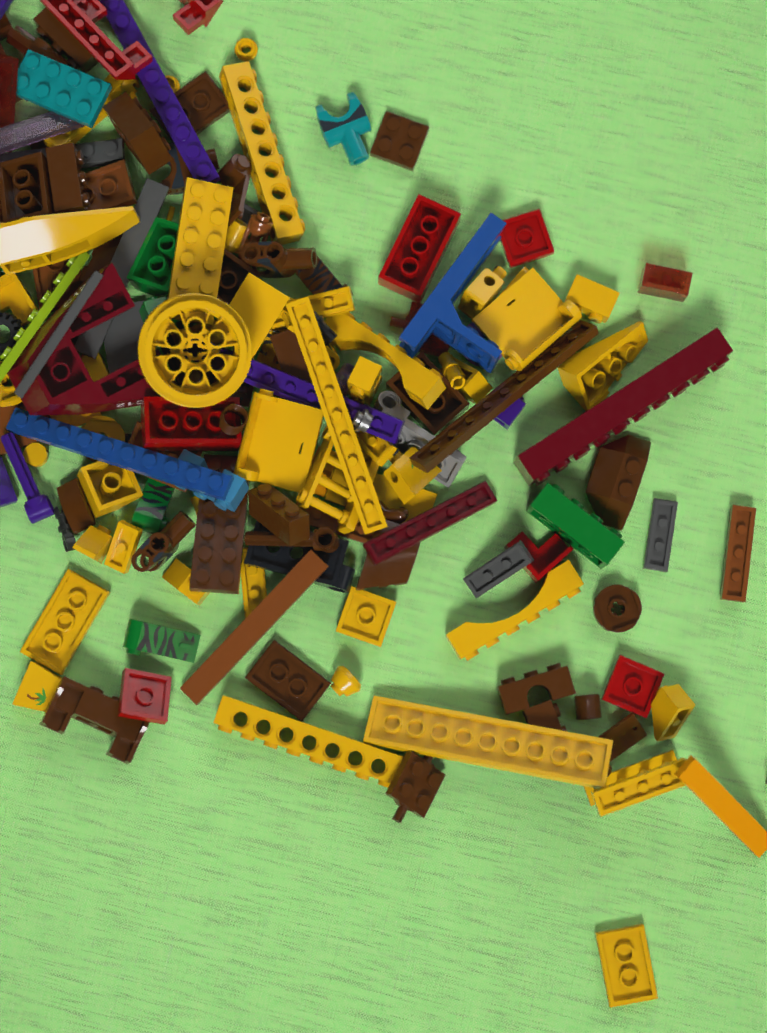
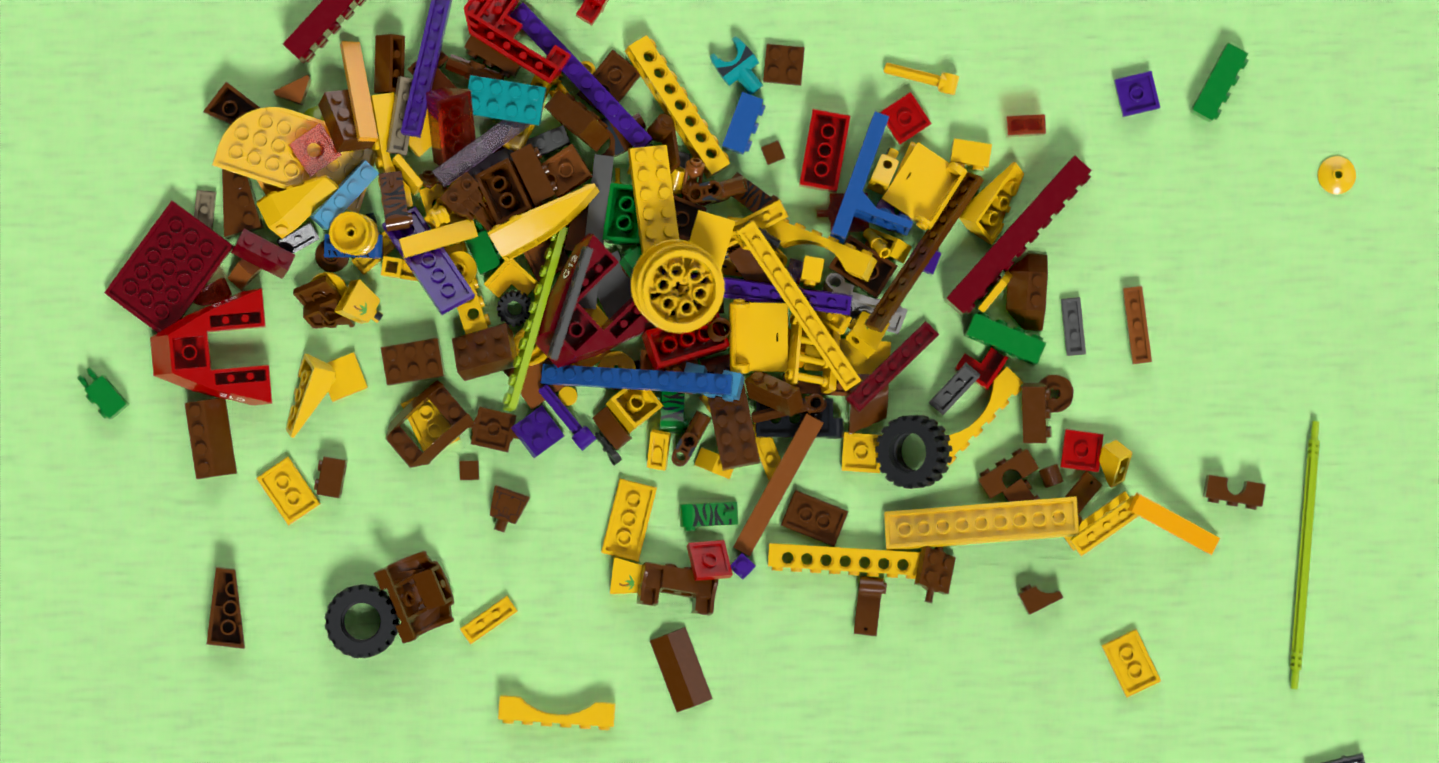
camera: 20 degrees left, 5 degrees up
(74, 821) = (681, 669): none -> reddish brown slope
(94, 542) = (636, 452): yellow slope -> none
(184, 714) = (742, 566): none -> dark purple brick
(246, 43) = (639, 16): yellow plate -> none
(323, 805) = (868, 605): none -> reddish brown door
(333, 193) = (743, 123): none -> blue brick
(344, 682) = (859, 507): yellow cone -> none
(358, 237) = (773, 152): none -> reddish brown tile
(362, 420) = (820, 304): flat silver plate -> none
(394, 515) = (863, 368): reddish brown arm -> none
(401, 622) = (891, 451): none -> black tyre
(529, 854) = (1035, 599): none -> reddish brown arch
(579, 465) = (997, 289): none -> yellow tile
(583, 210) = (946, 83): none -> yellow axle
(589, 625) = (1036, 412): none -> reddish brown brick

